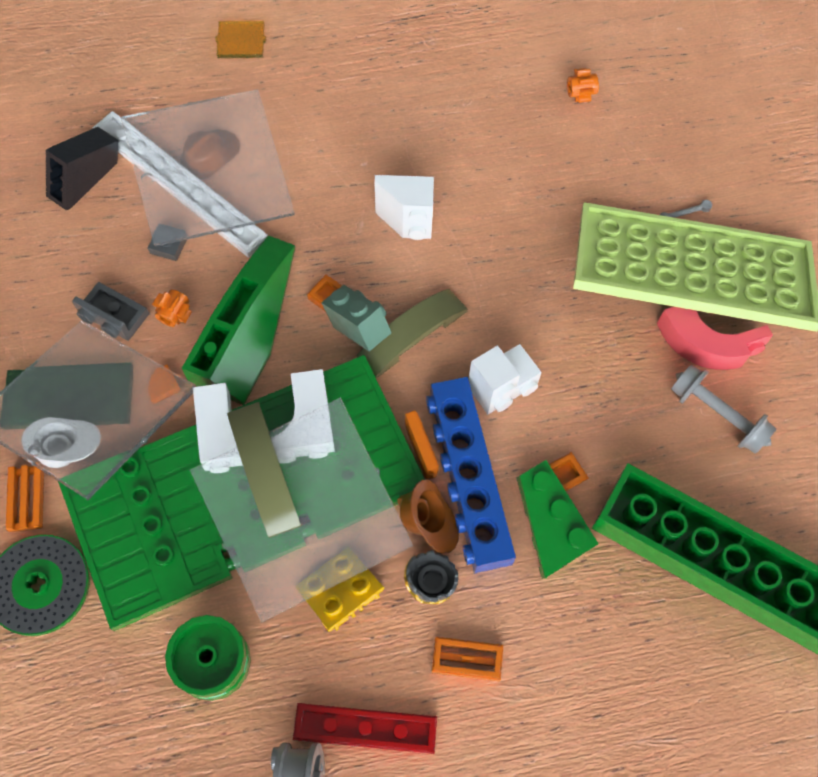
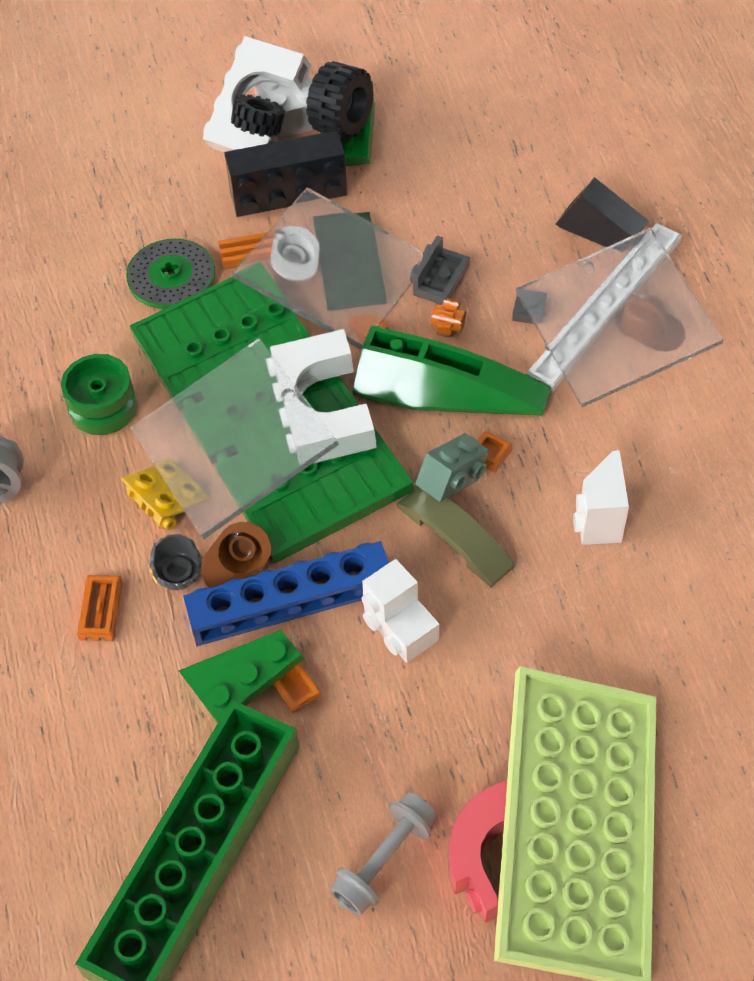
camera: 90 degrees right, 10 degrees down
(263, 470) = (261, 386): olive slope -> none
(365, 728) = (38, 529): red tile -> none
(421, 445) = (317, 544): orange tile -> none
(705, 206) = (690, 855): light grey hinge -> none

